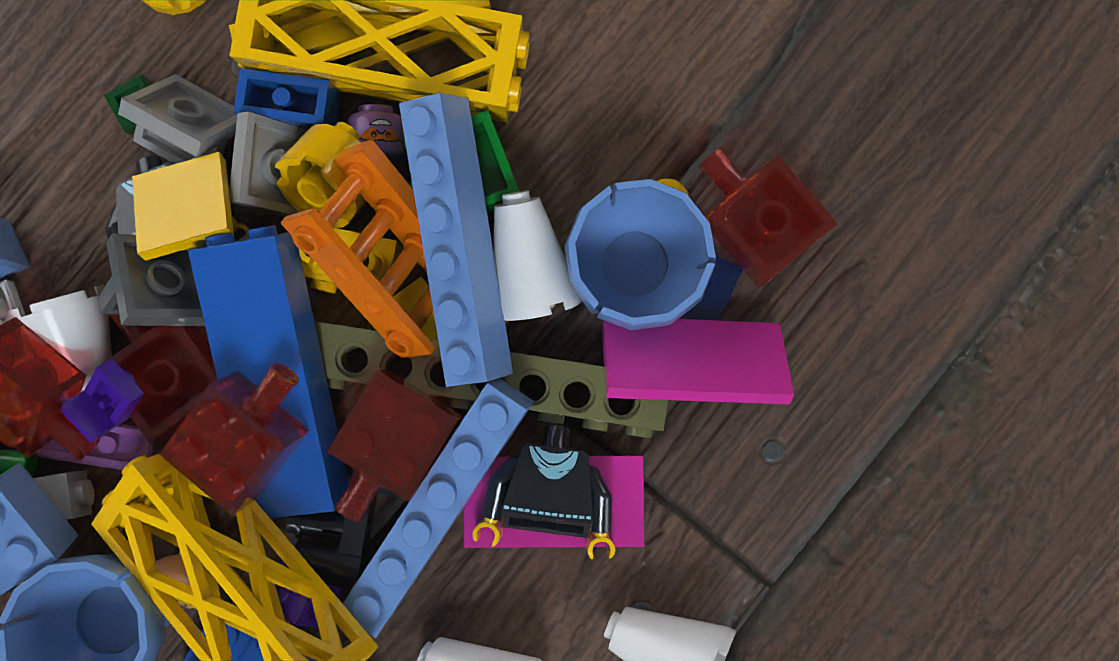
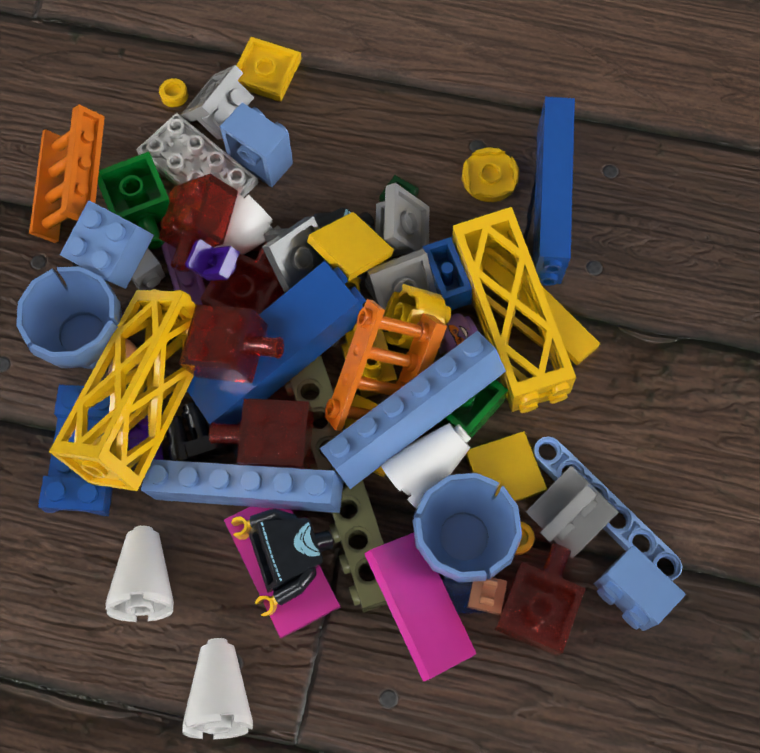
camera: 65 degrees right, 15 degrees down
(576, 165) = (511, 464): none -> yellow tile
(672, 120) = (572, 511): none -> light grey bracket
(682, 71) = (633, 526): none -> light blue beam
(726, 275) = (487, 595): none -> nougat tile
(807, 94) = (638, 590): none -> medium blue brick

